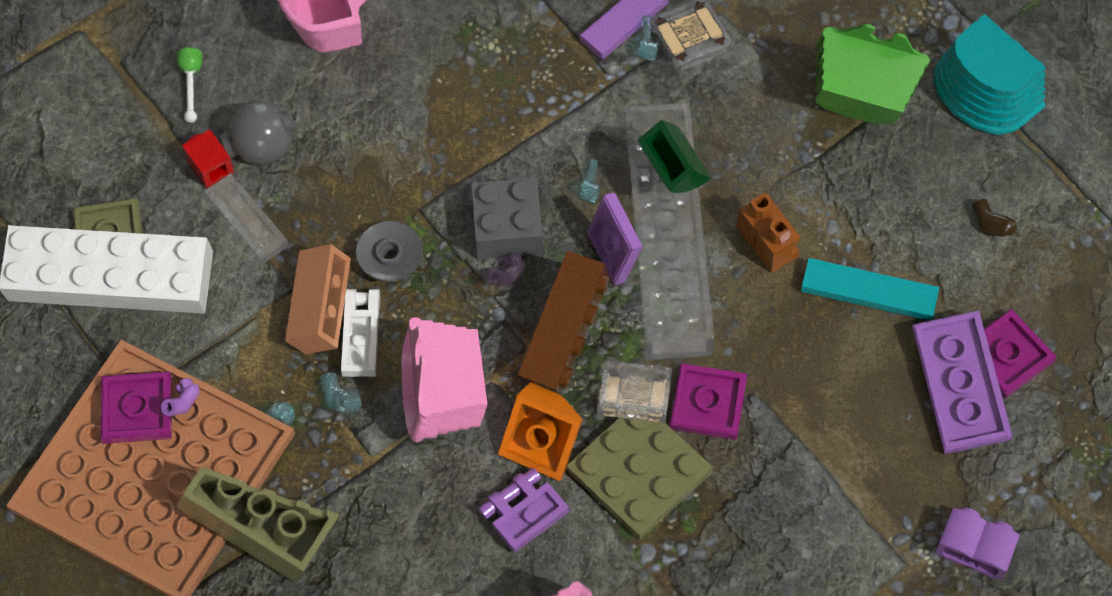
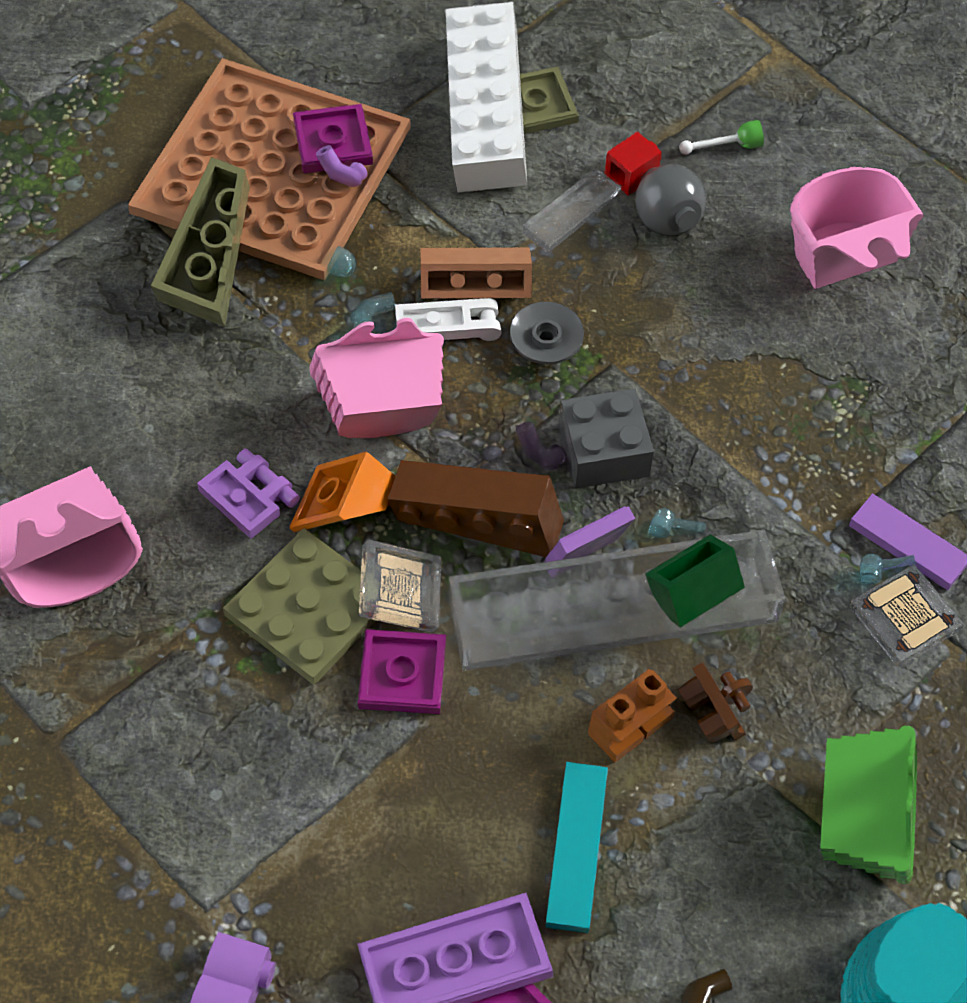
camera: 80 degrees right, 5 degrees down
(746, 179) = (703, 689): none -> reddish brown hips

